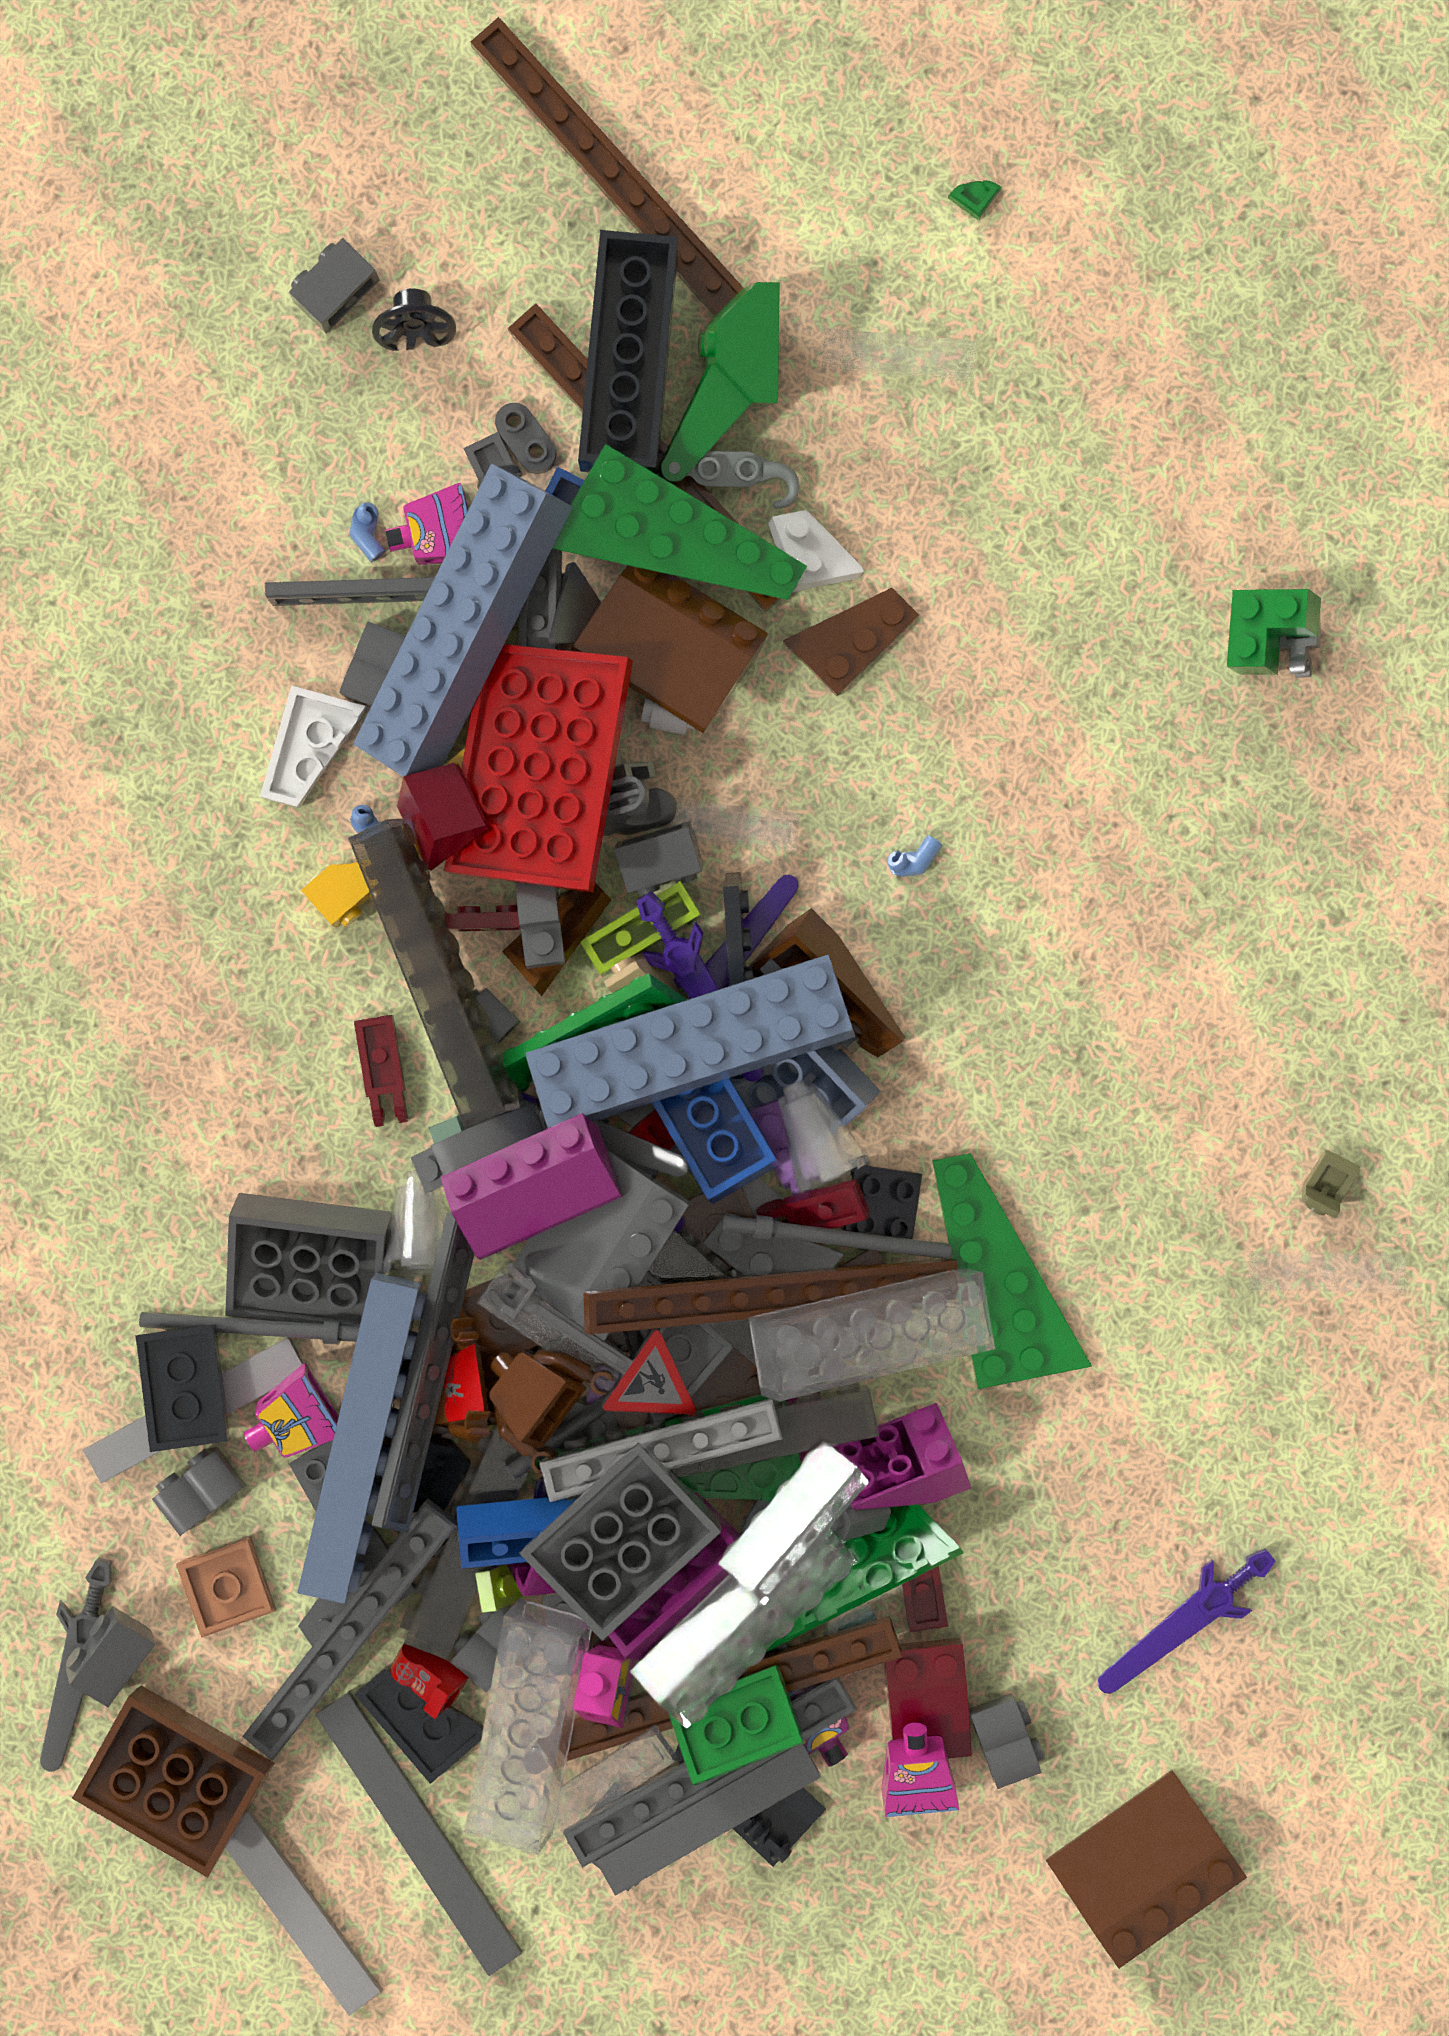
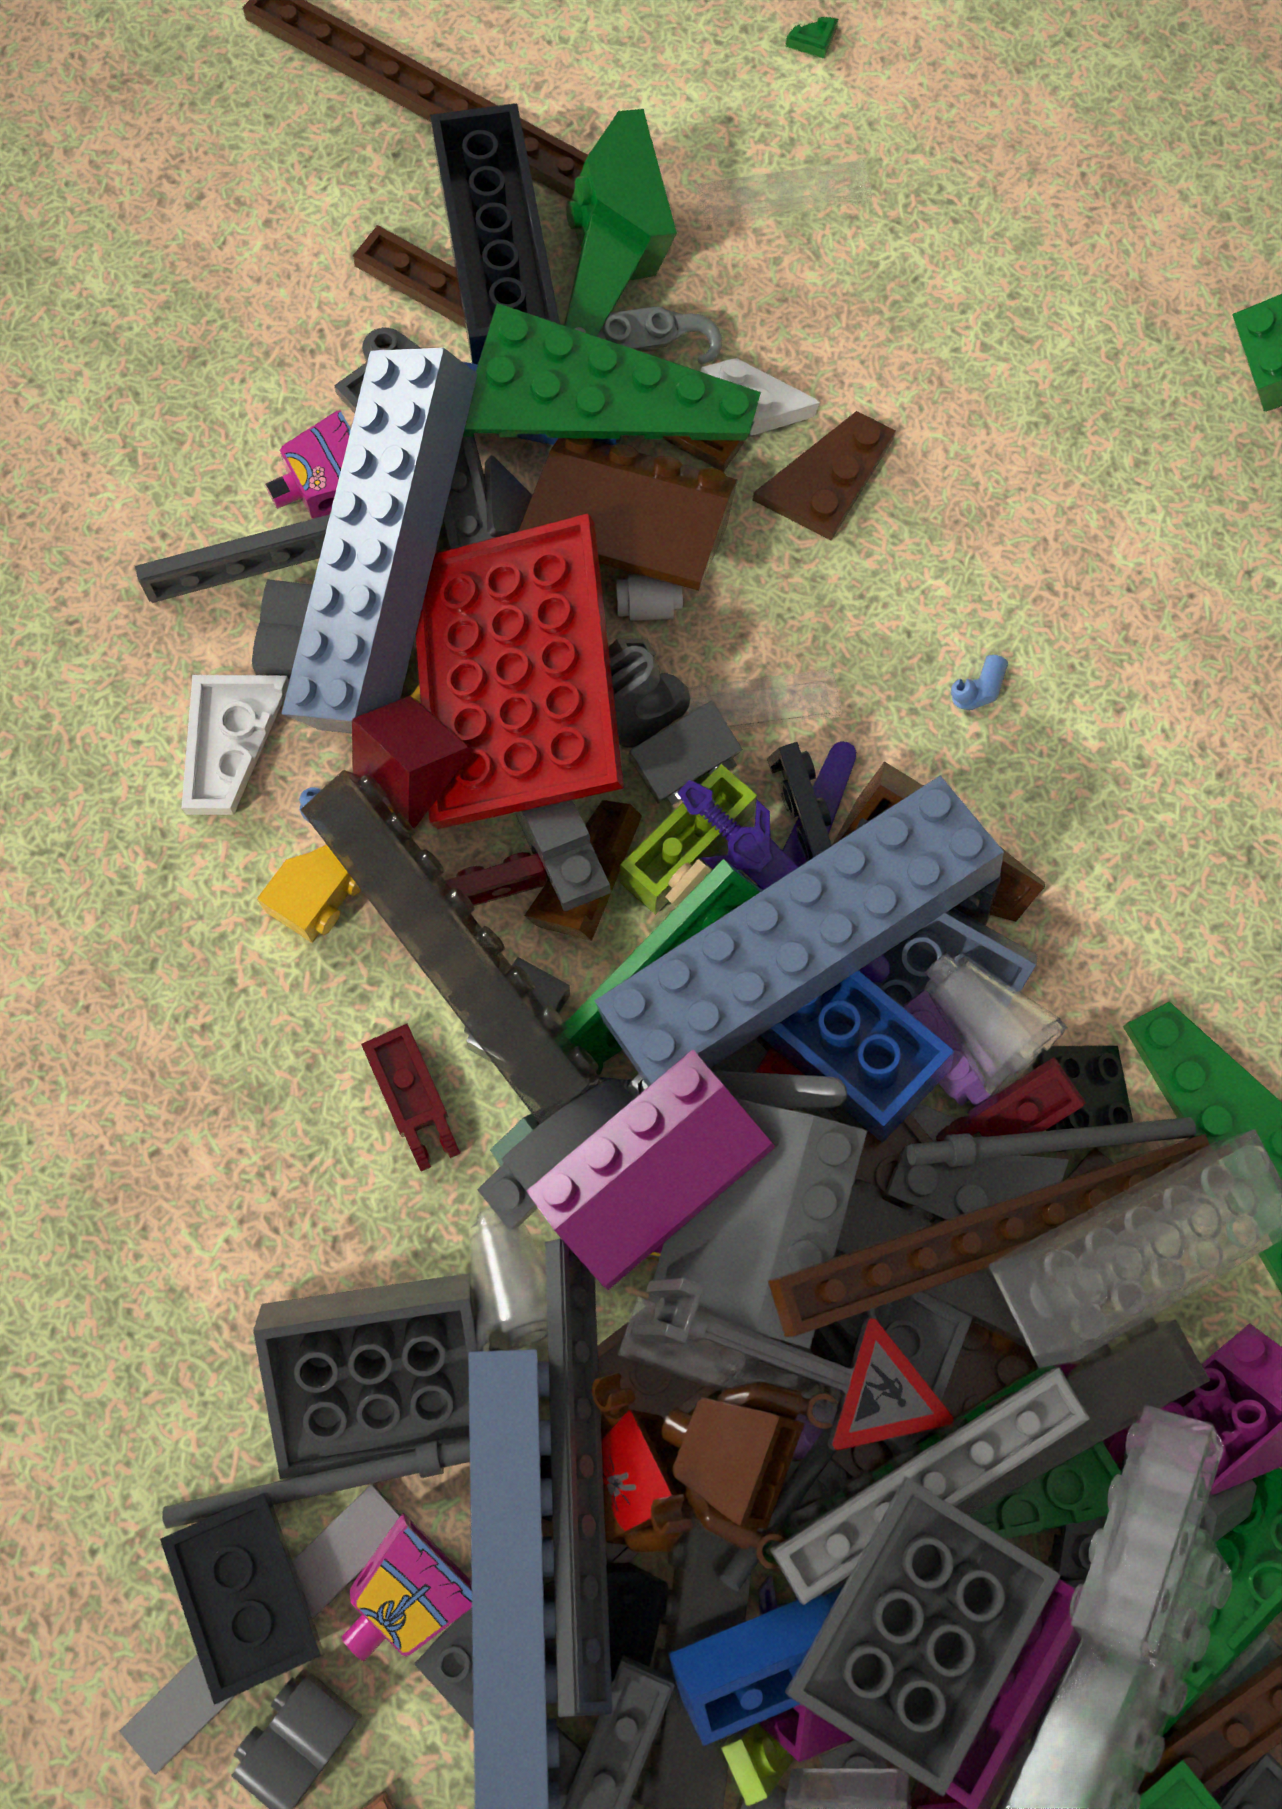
camera: 20 degrees left, 15 degrees down
(333, 284) = (148, 259): dark grey brick -> none
(363, 530) = (240, 495): medium blue arm -> none
(413, 318) = (245, 269): black wheel -> none

